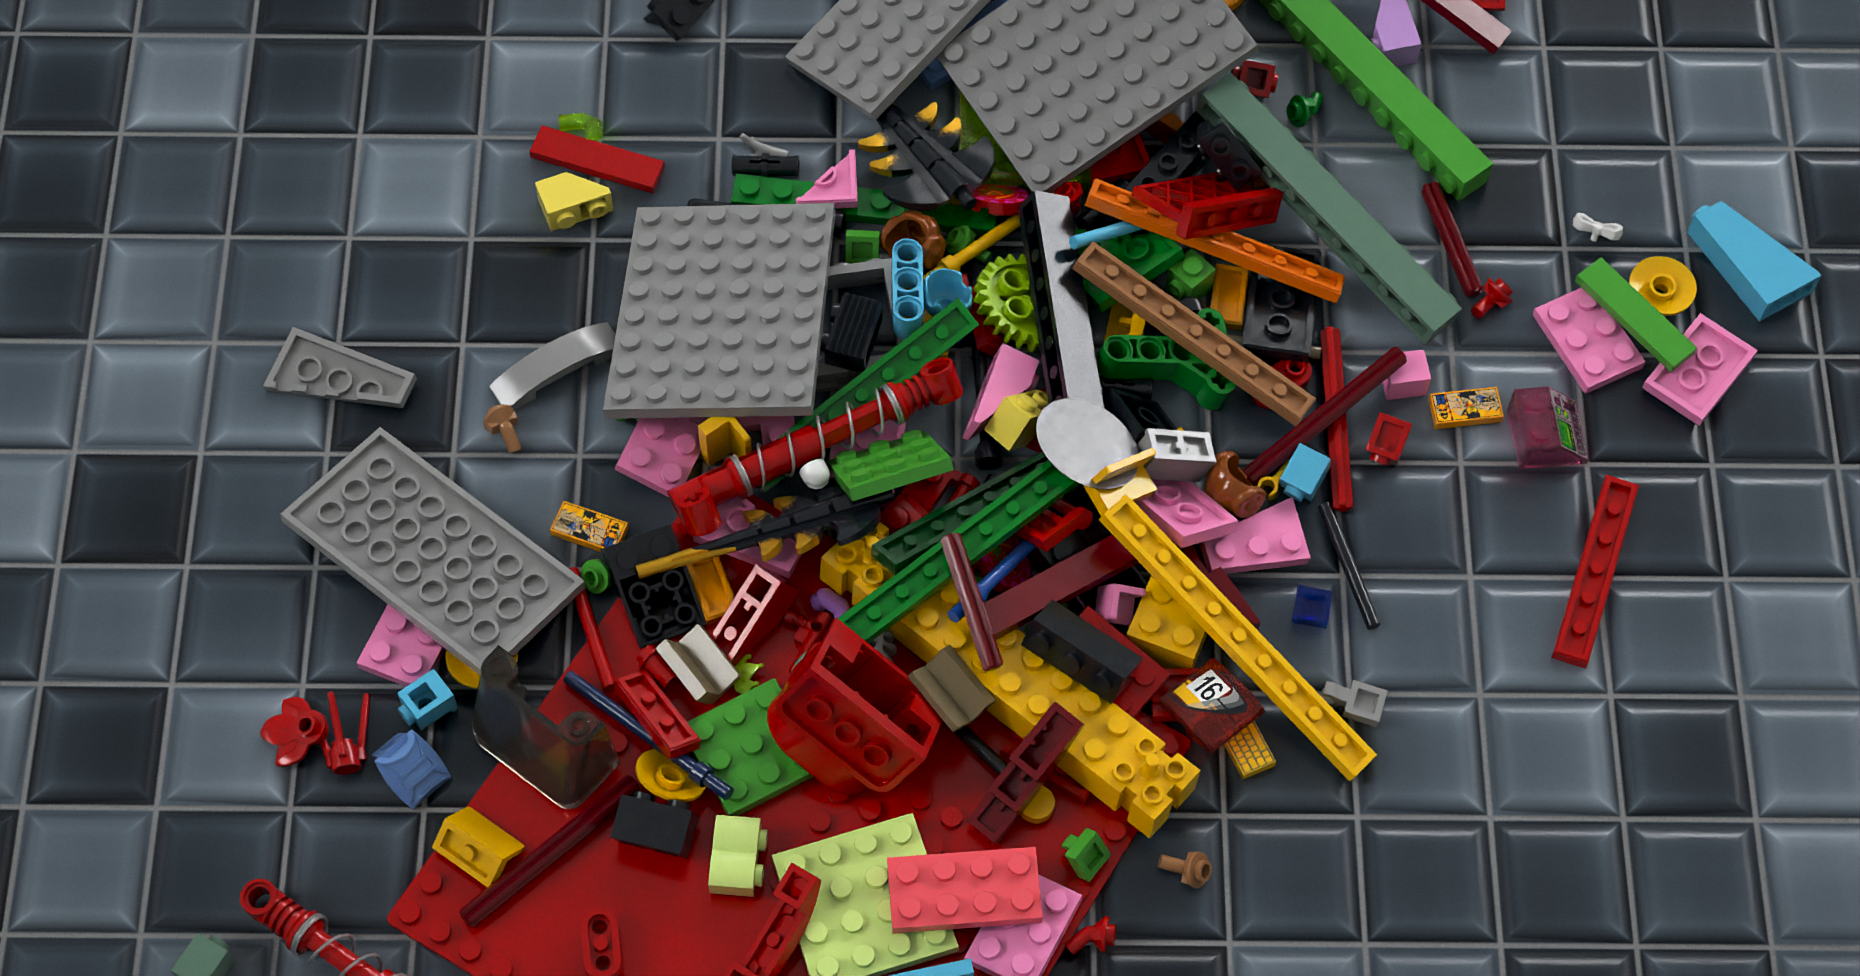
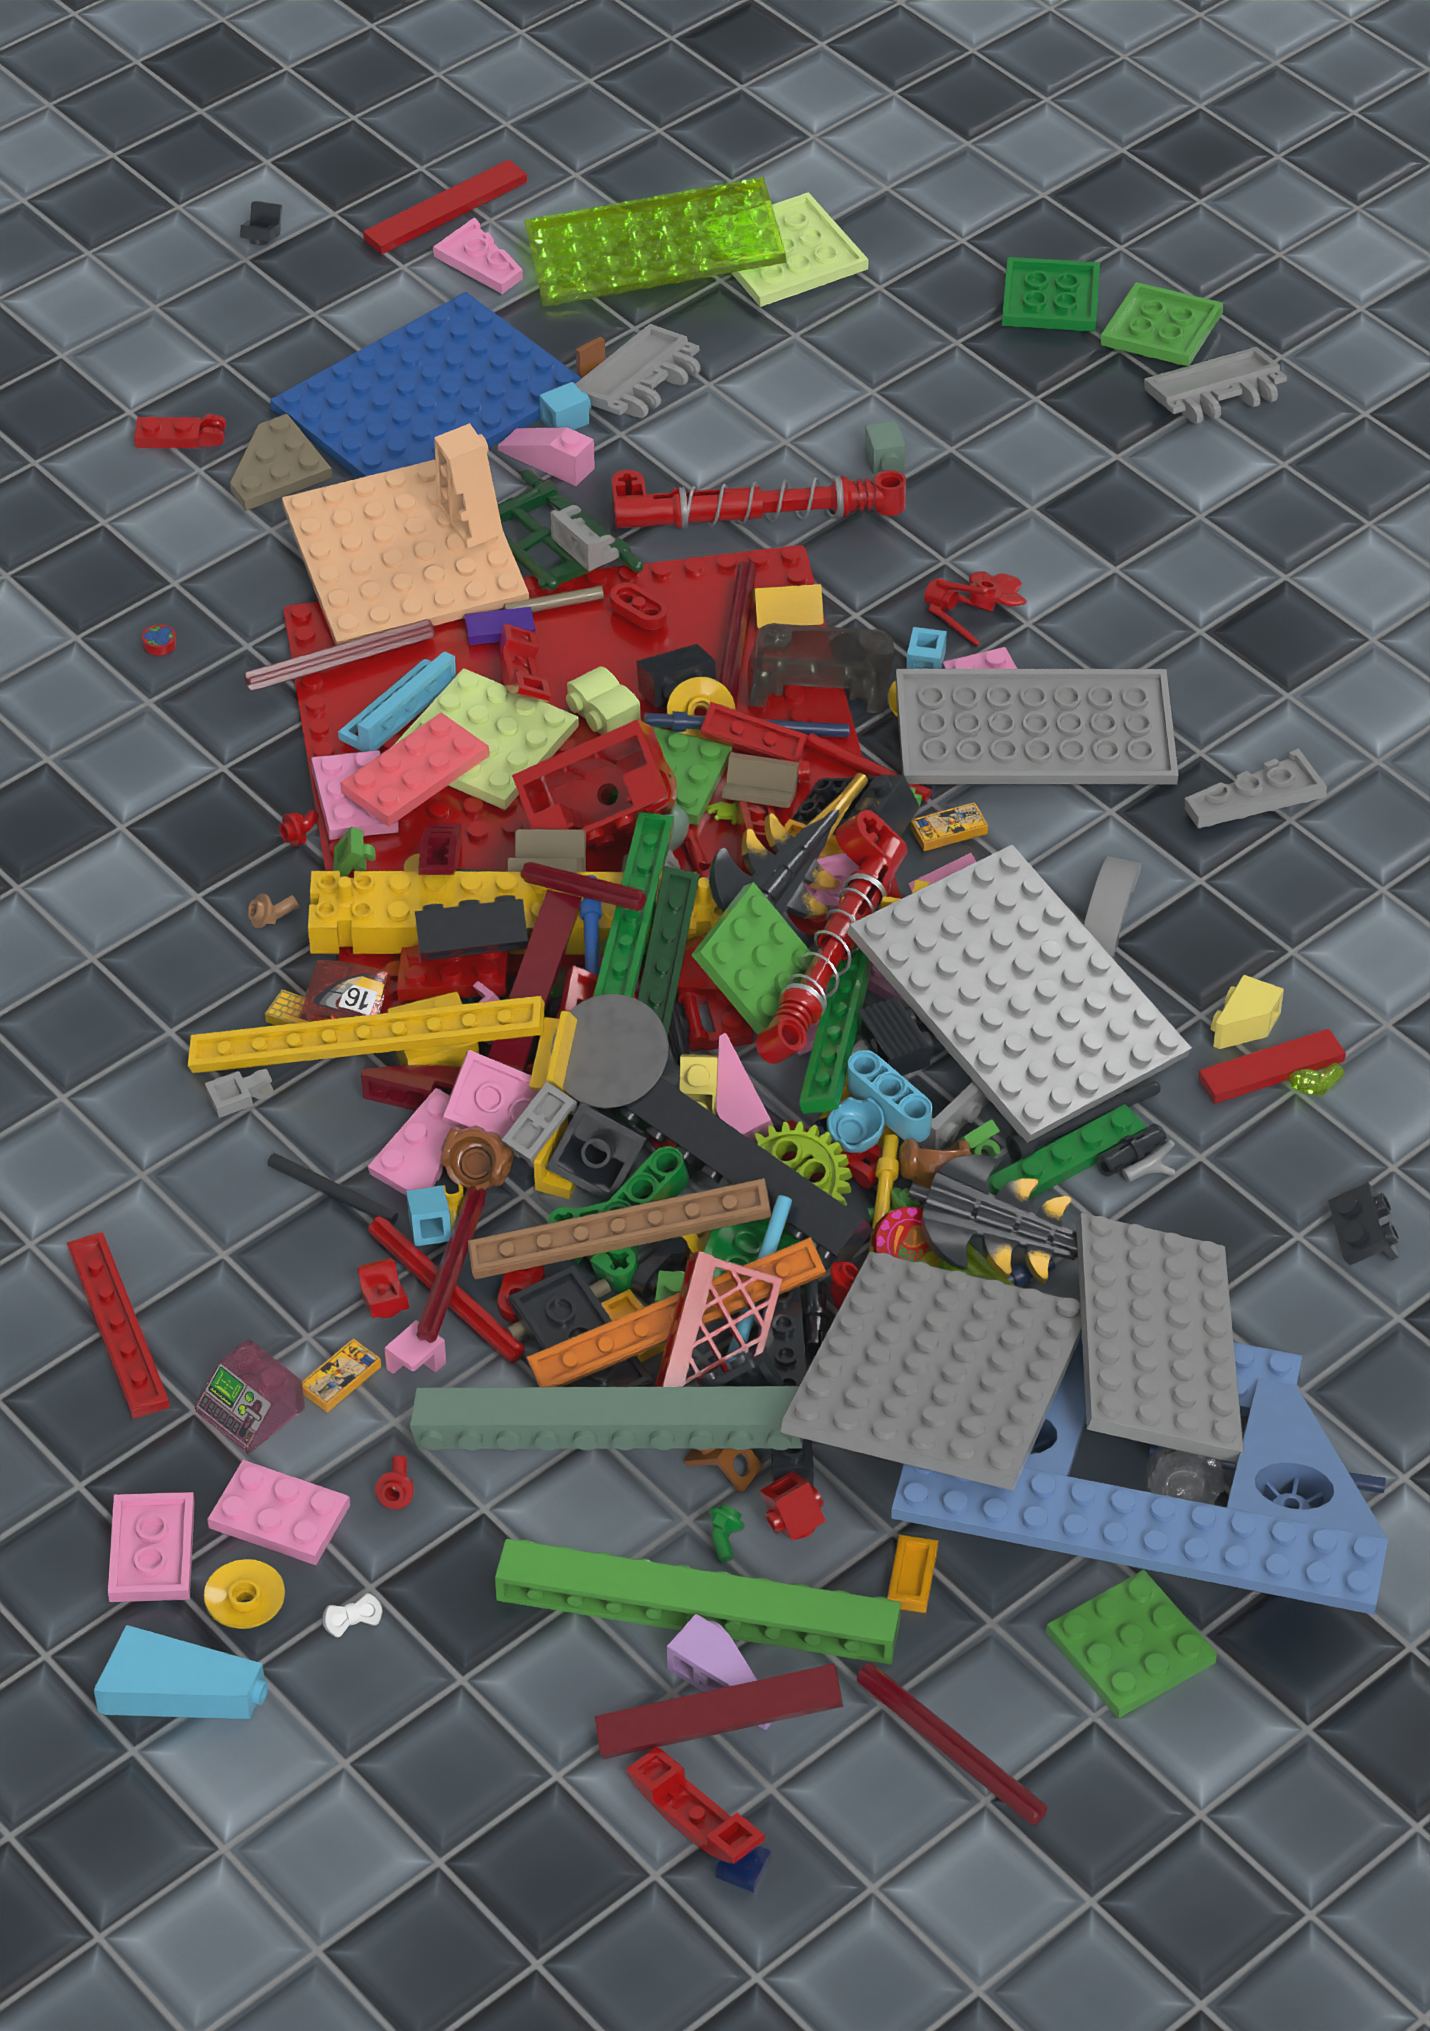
camera: 140 degrees right, 15 degrees down
(410, 767) = (892, 612): medium blue piece -> none
(502, 419) = (1097, 838): medium nougat plate -> none
(815, 474) = (807, 927): white hinge -> none
(836, 185) = (1048, 1159): bright pink tile -> none
(1312, 606) = (333, 1132): clear blue plate -> none
(1452, 239) = (476, 1508): dark red axle -> none
(1636, 314) = (246, 1536): bright green tile -> none

